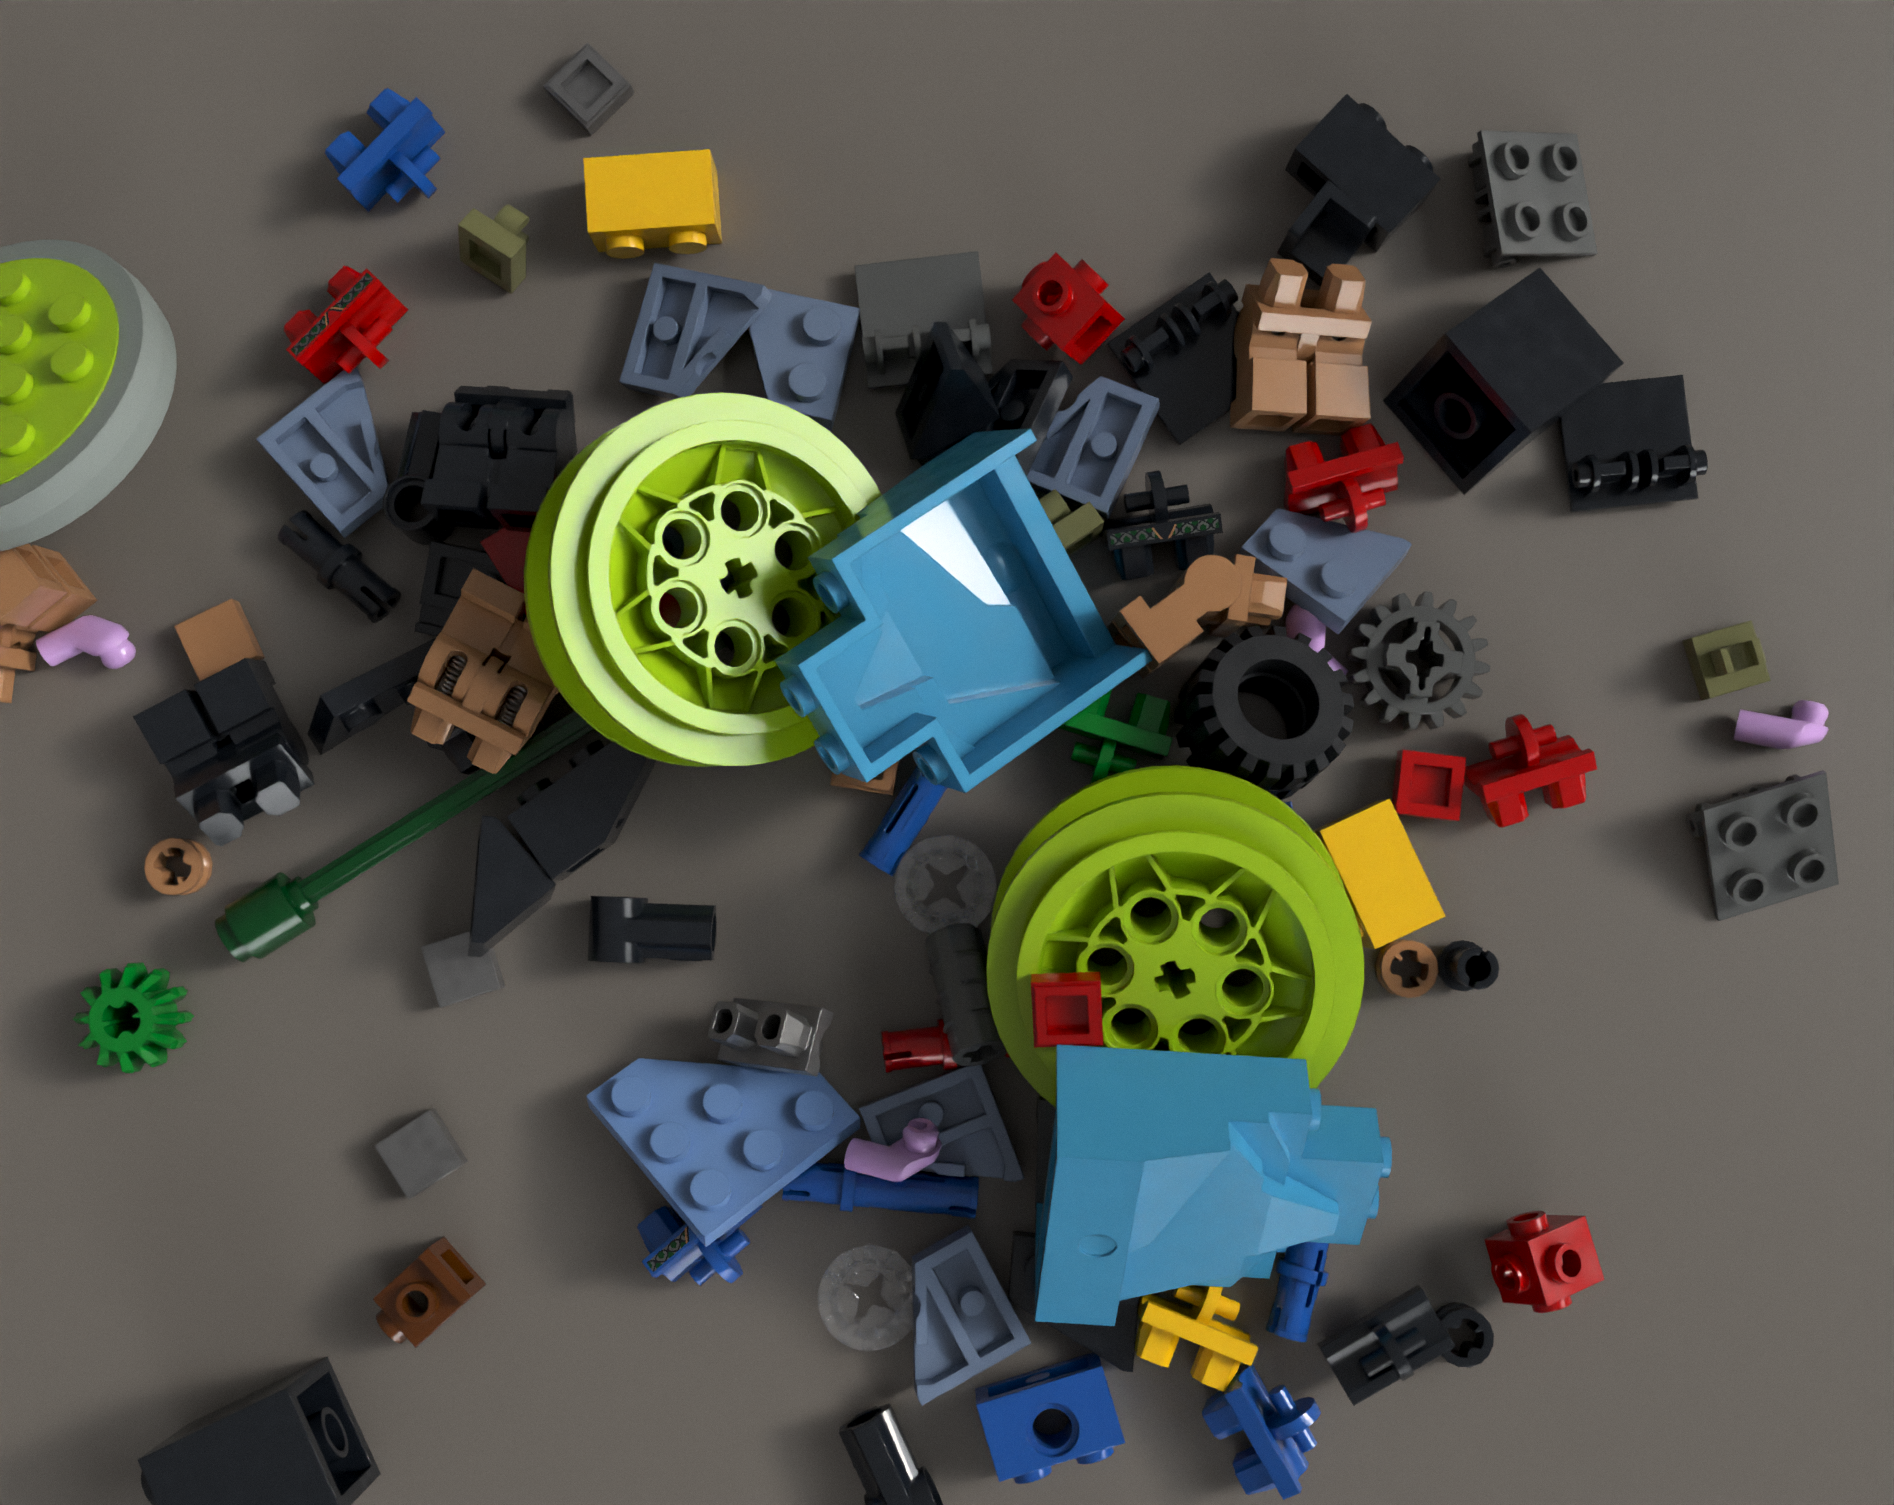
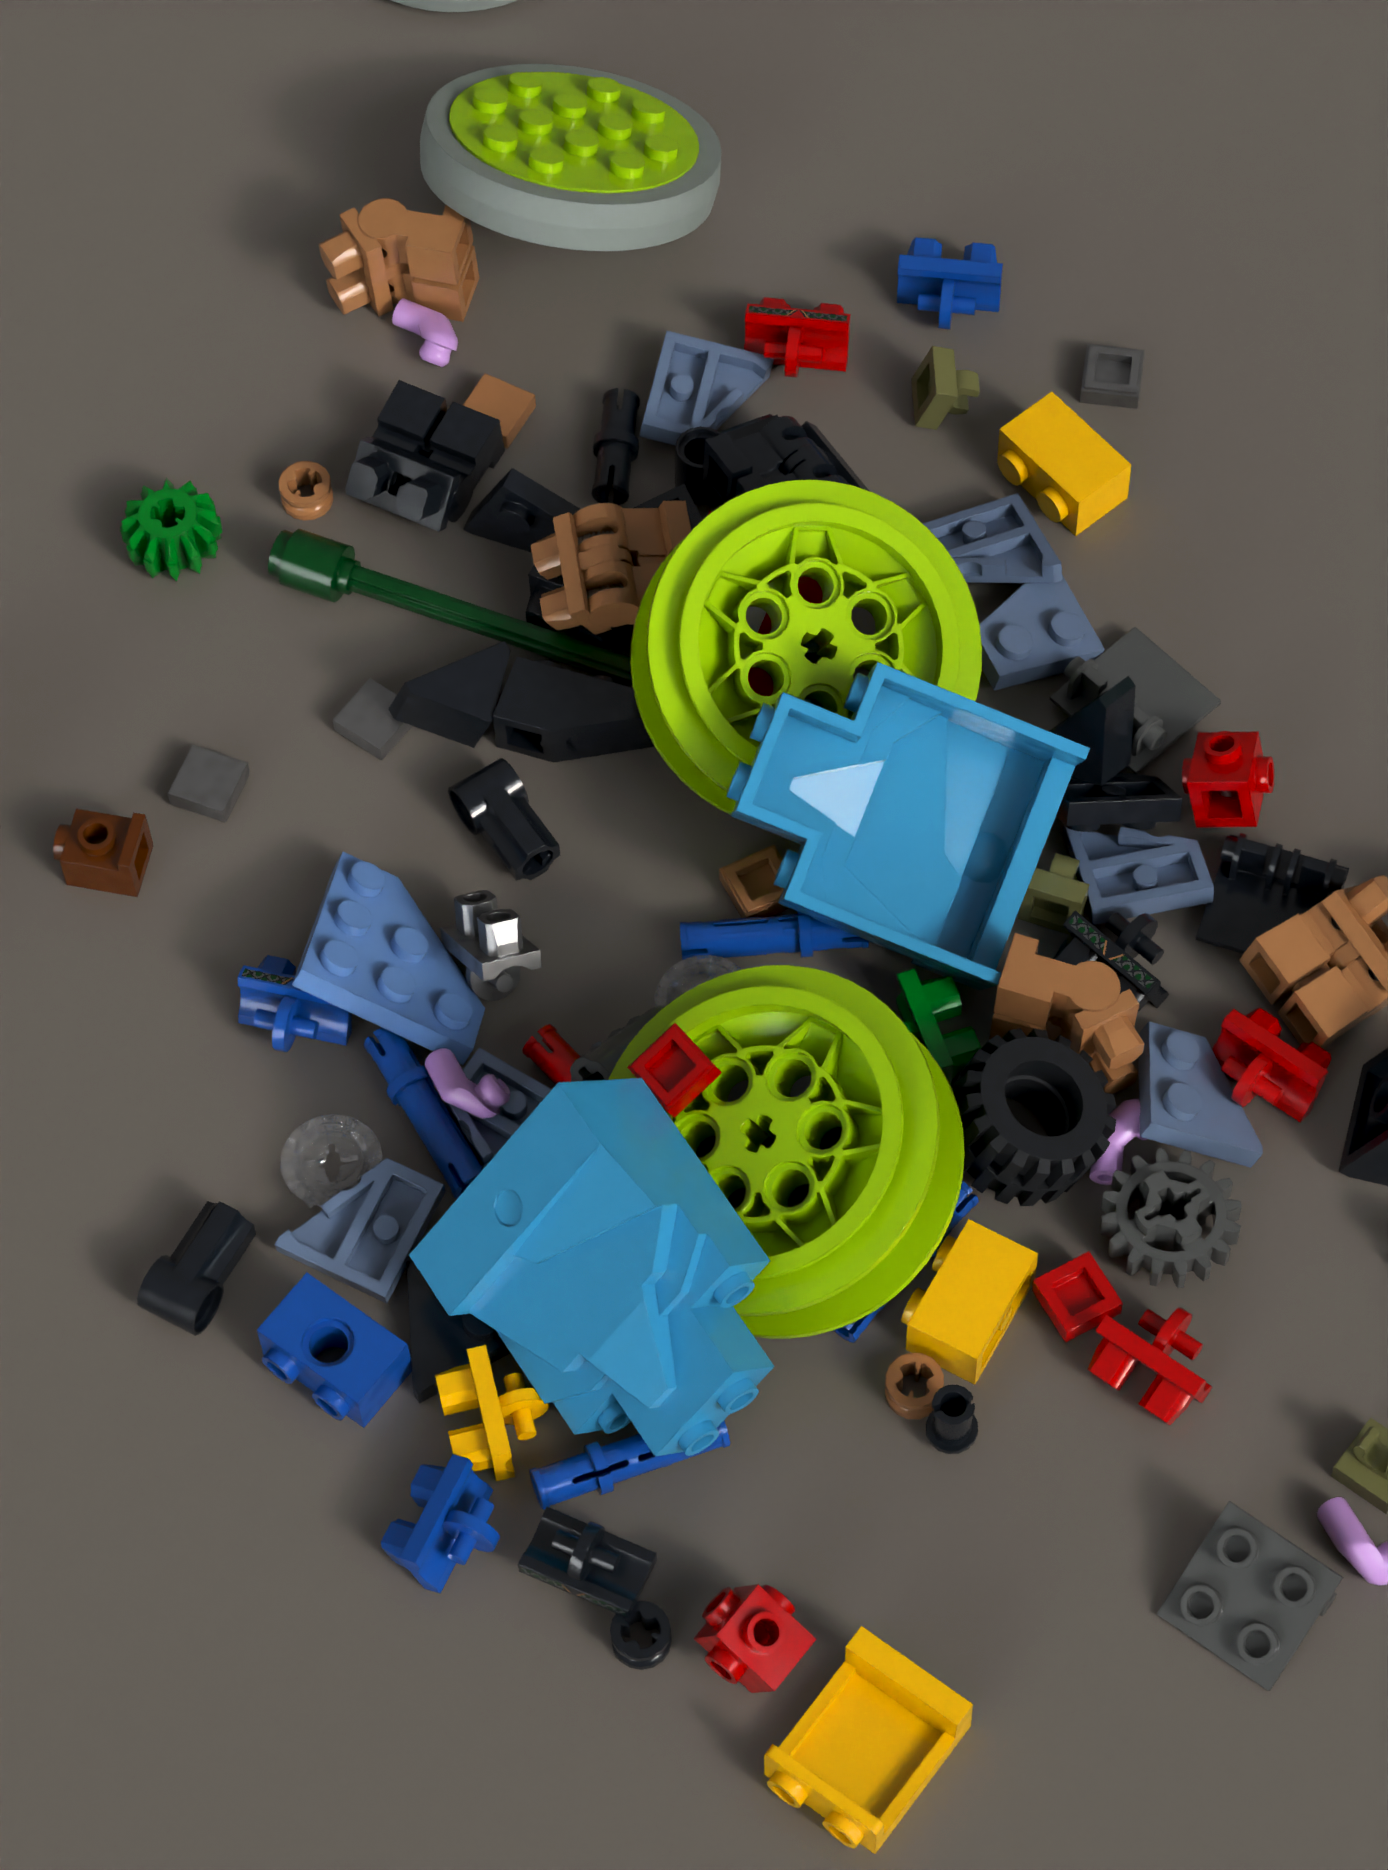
camera: 55 degrees right, 25 degrees down
(1676, 1230) = (868, 1743): none -> yellow panel

